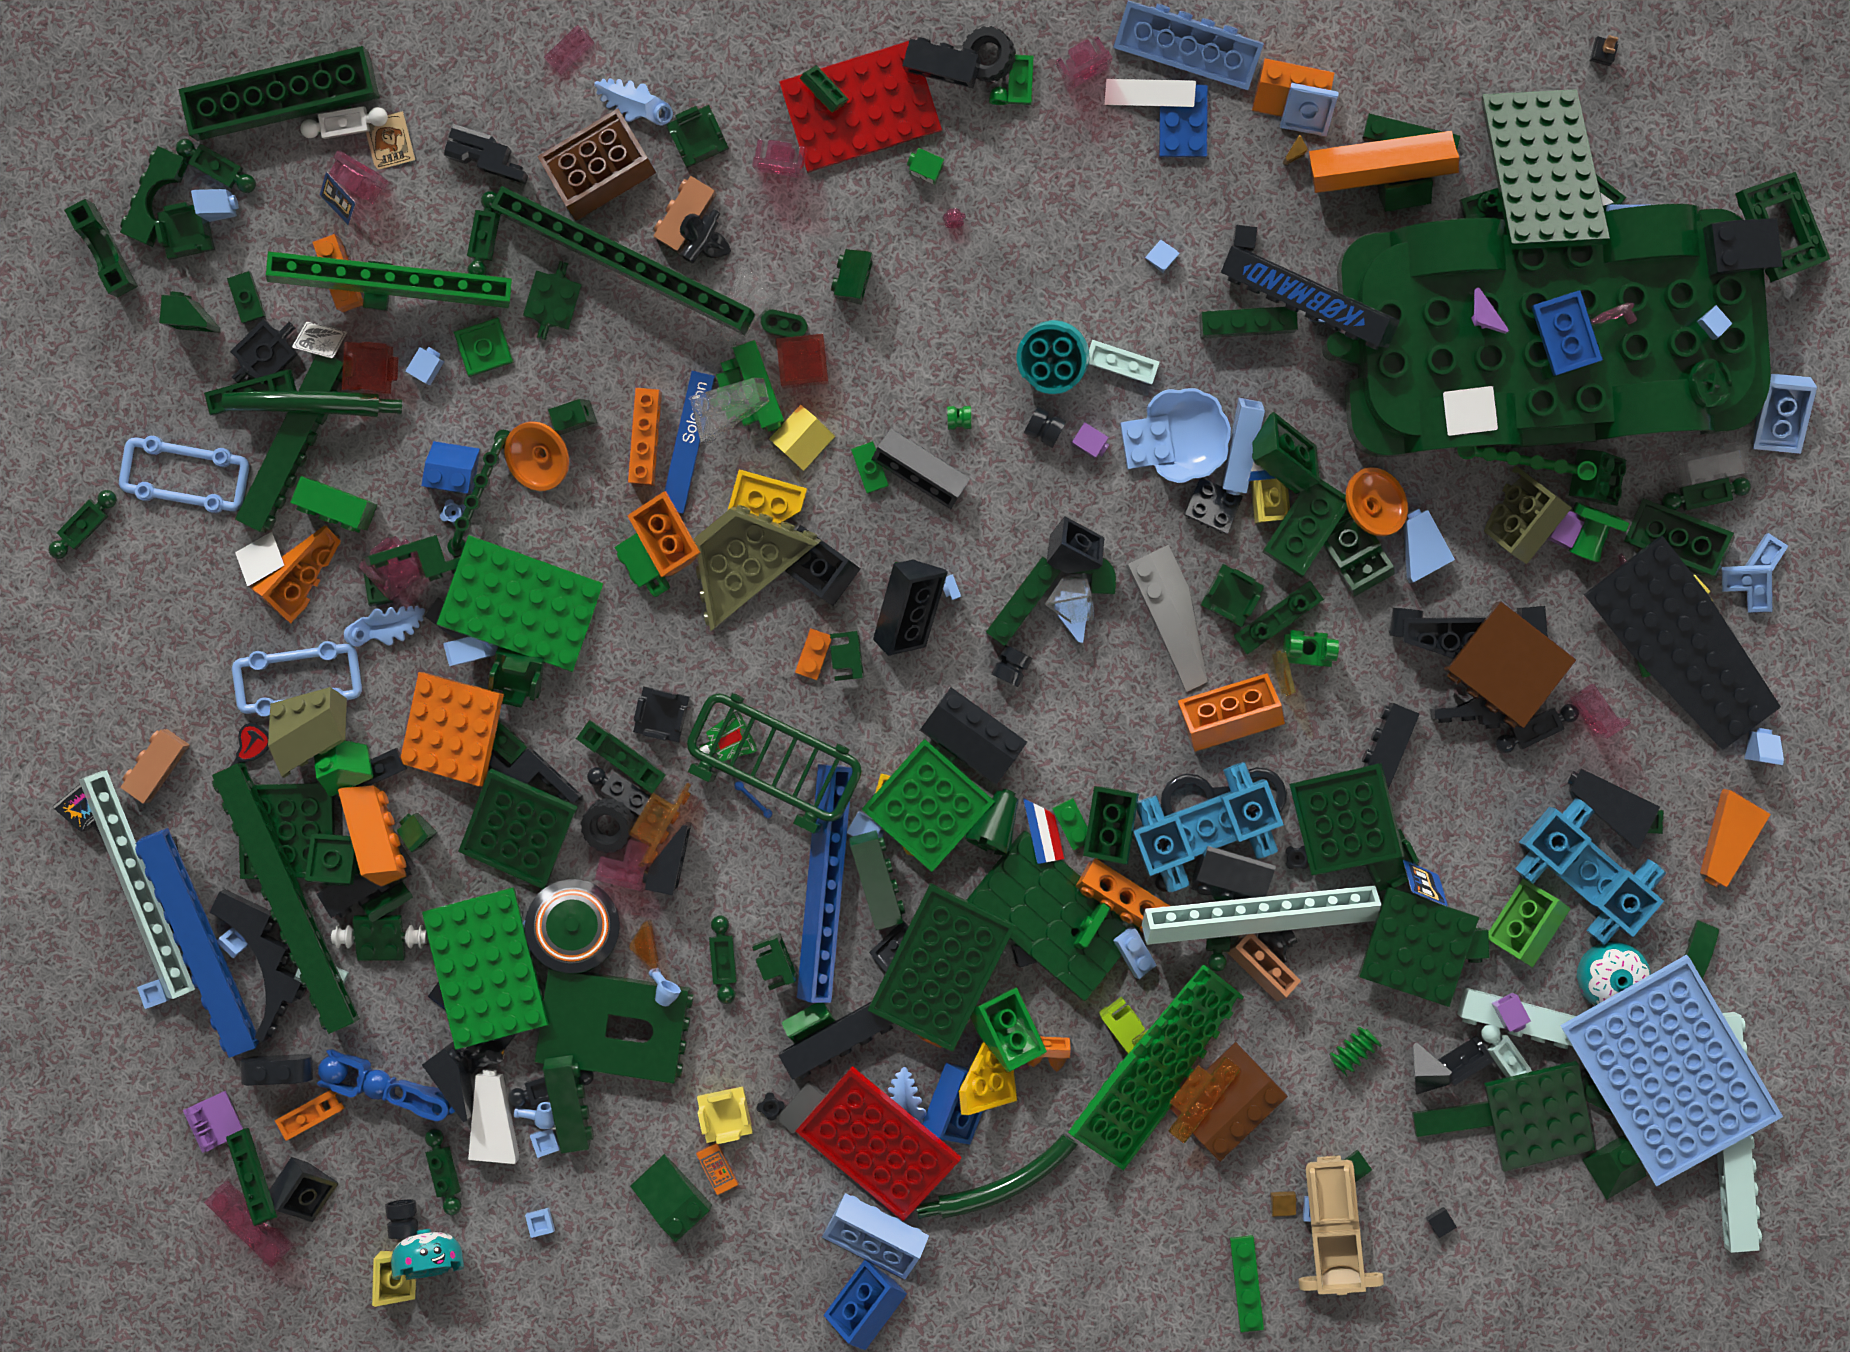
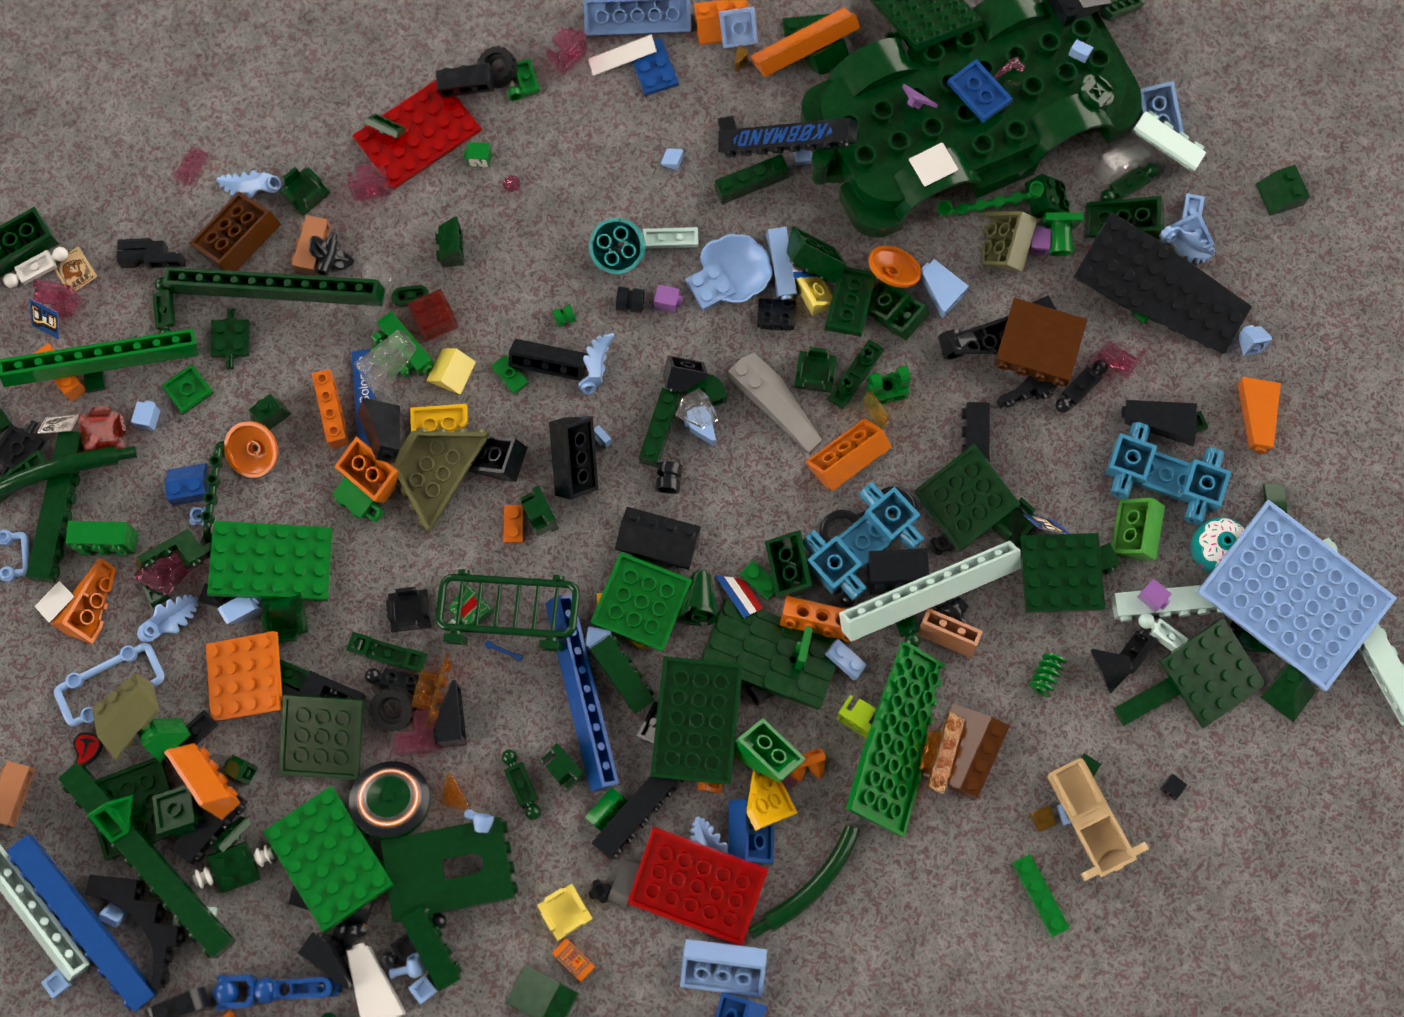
camera: 20 degrees left, 15 degrees down
(262, 847) = (113, 818): none -> green slope
(697, 490) = (382, 428): none -> black slope
(974, 495) = (595, 364): none -> light blue plant
(1738, 601) = (1187, 244): none -> light blue plant
(1776, 463) = (1168, 141): none -> light aqua slope

